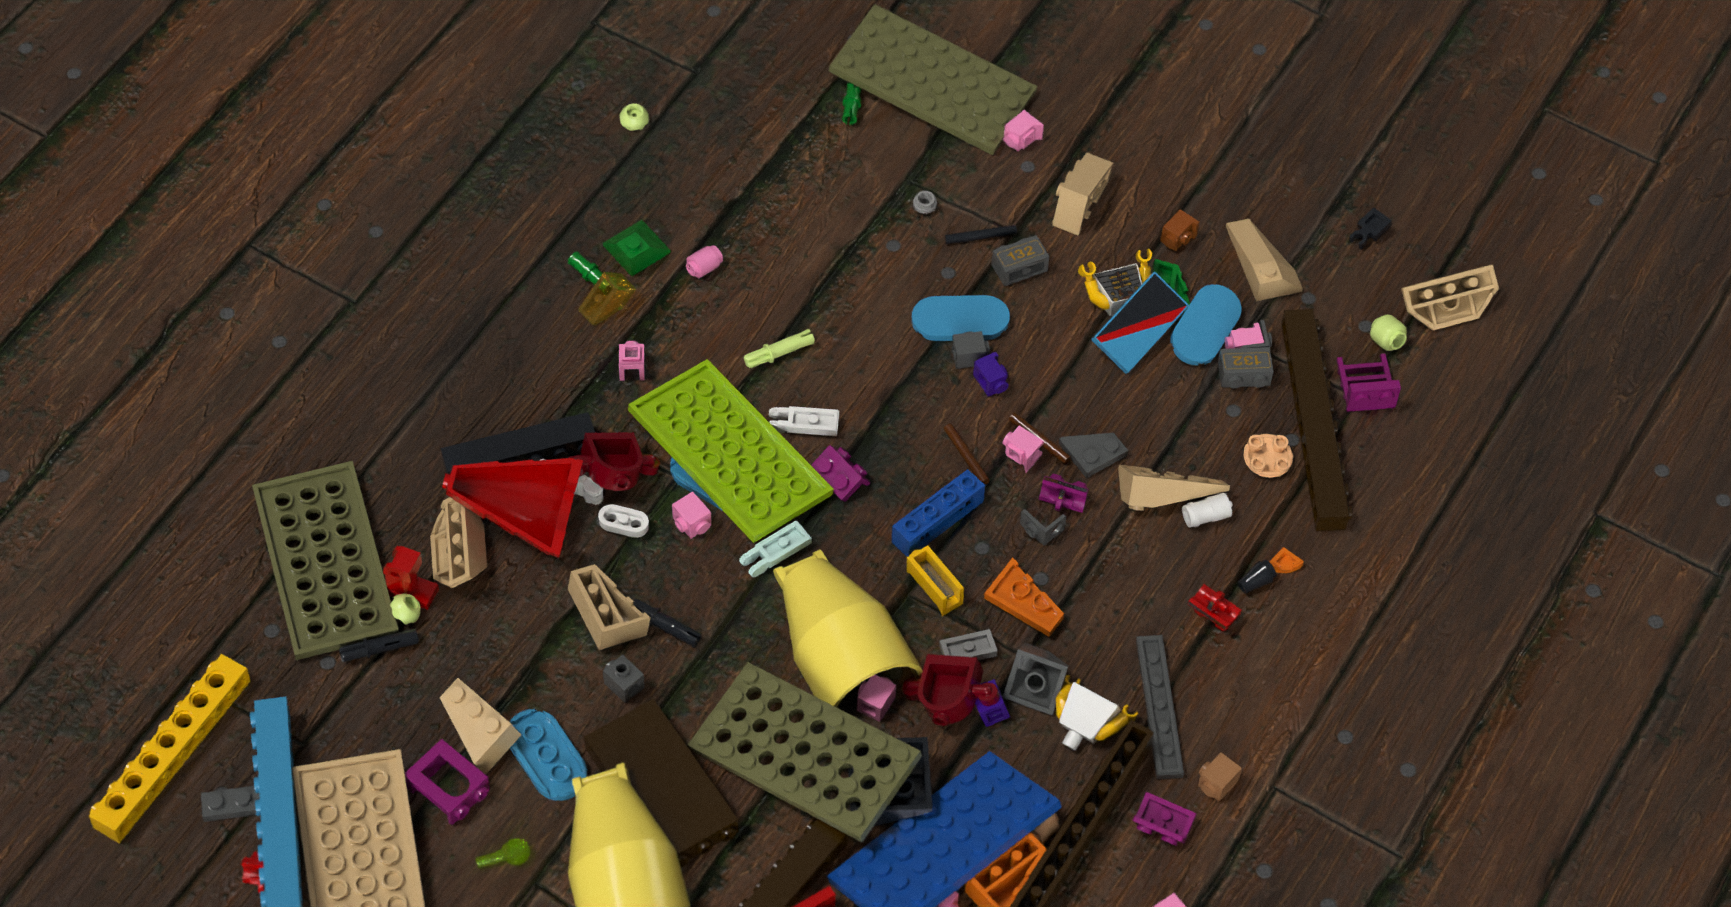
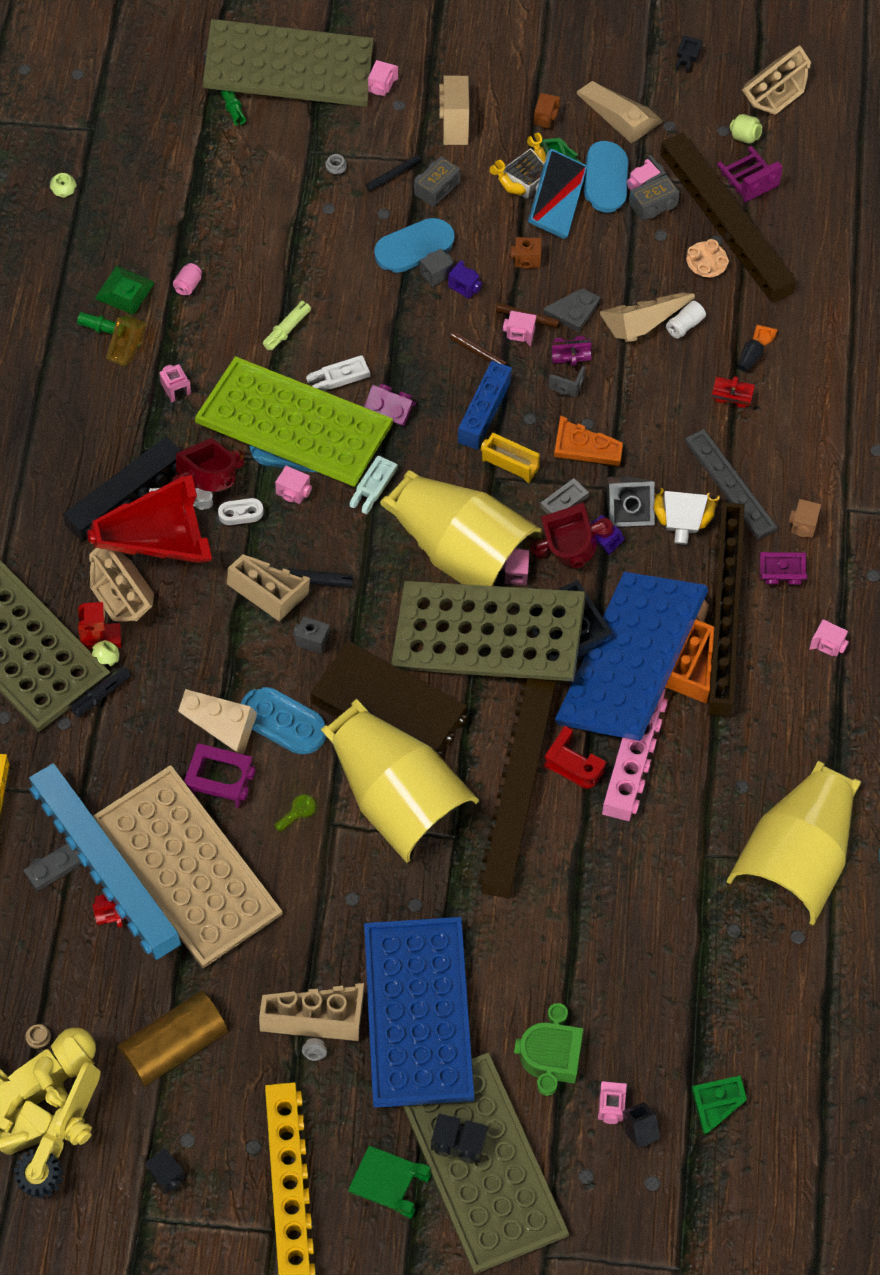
camera: 25 degrees left, 5 degrees up
(1074, 371) = (527, 252): none -> dark orange brick

